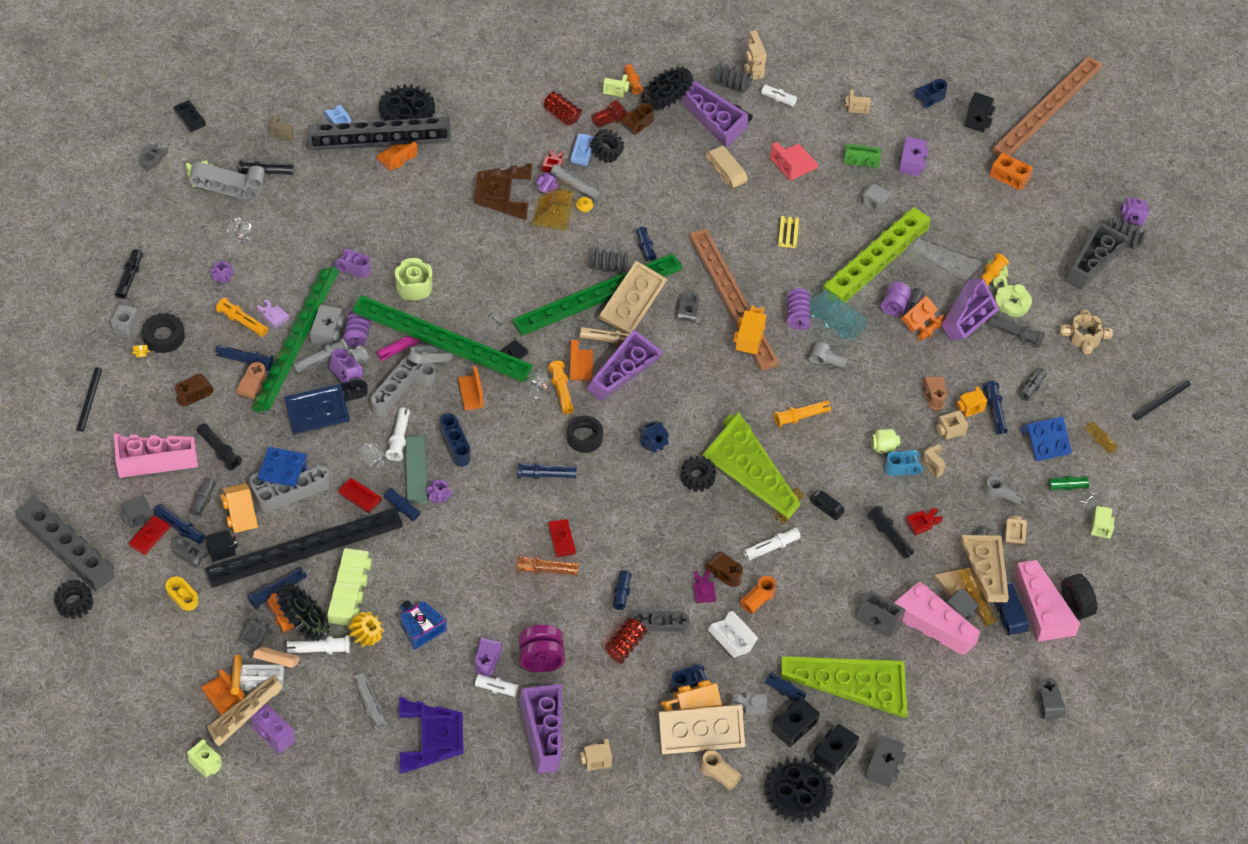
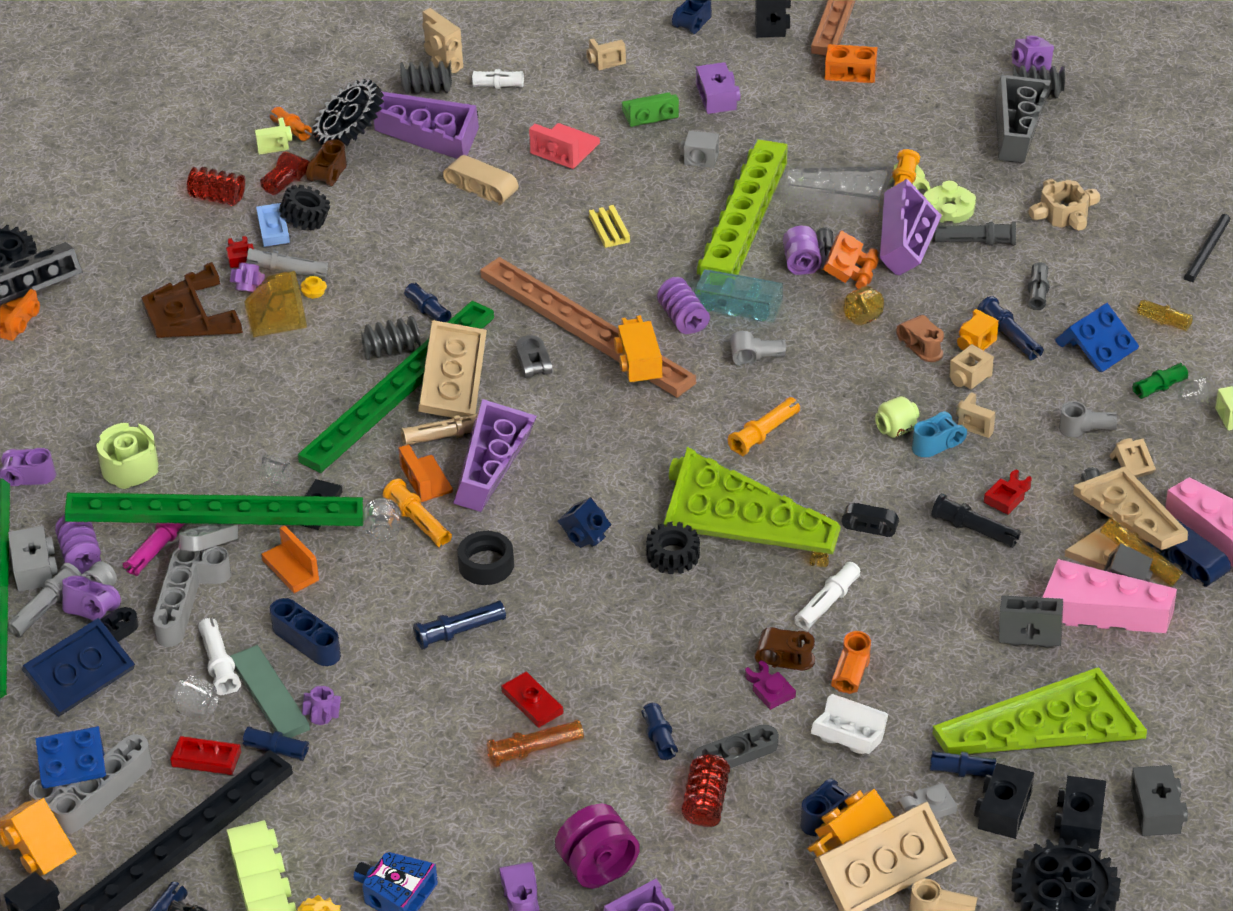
camera: 20 degrees left, 10 degrees down
(911, 354) = (864, 304): none -> clear yellow head

